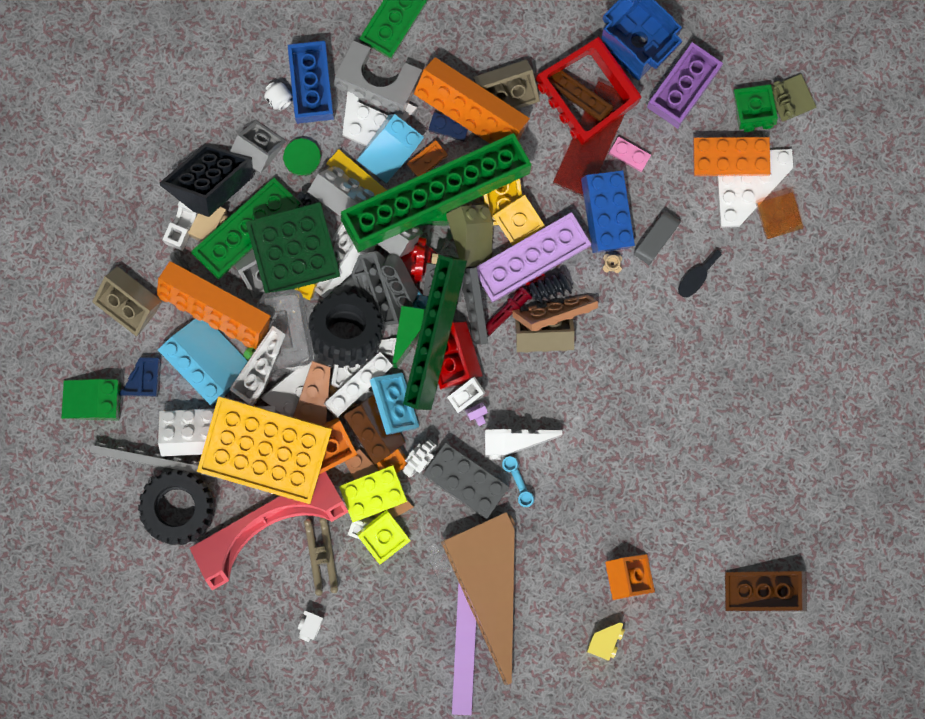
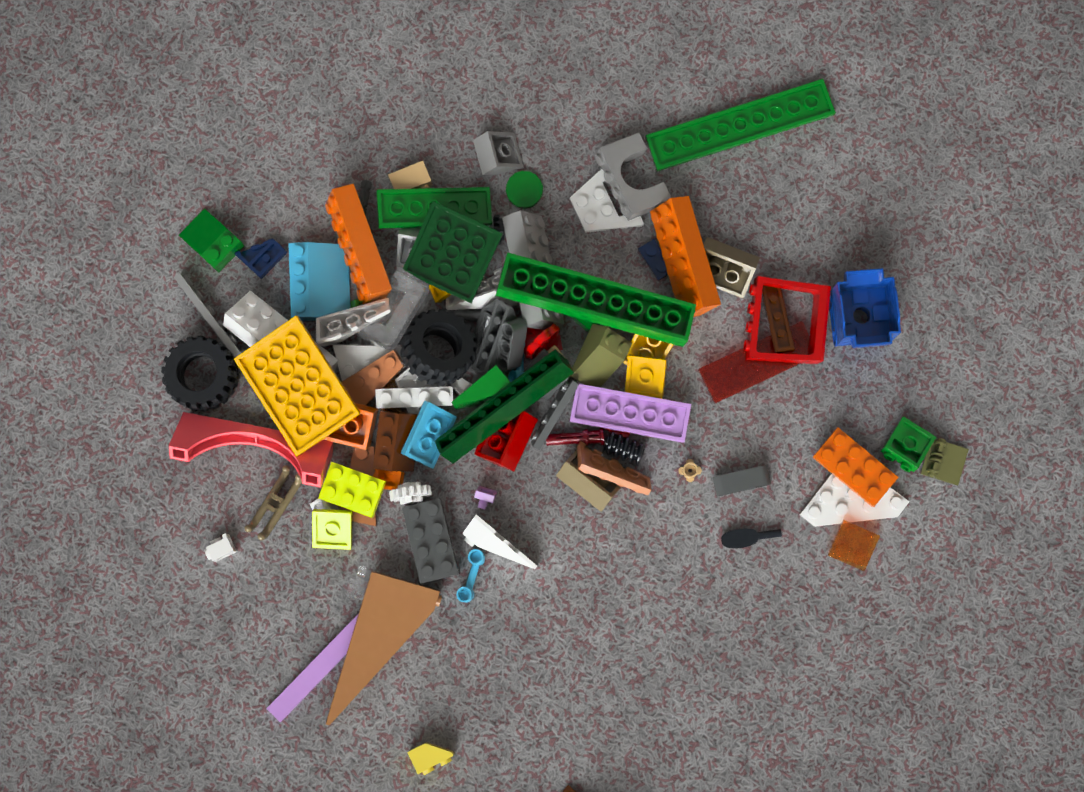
camera: 50 degrees right, 0 degrees up
(126, 301) = (300, 187): dark tan slope -> none
(177, 232) = (407, 155): white arch -> none
(208, 179) = (437, 146): black slope -> none
(278, 96) = (546, 128): white head -> none
(310, 82) = (579, 137): blue brick -> none
(353, 171) = (553, 234): yellow tile -> none
(389, 147) = (595, 237): medium azure slope -> none
(427, 159) = (617, 270): orange plate -> none
(466, 395) = (488, 475): white slope -> none
(607, 211) = (720, 427): blue brick -> none
(629, 154) = (777, 398): bright pink plate -> none
(629, 576) = (491, 724): orange slope -> none
(684, 85) = (867, 380): medium lavender brick -> none

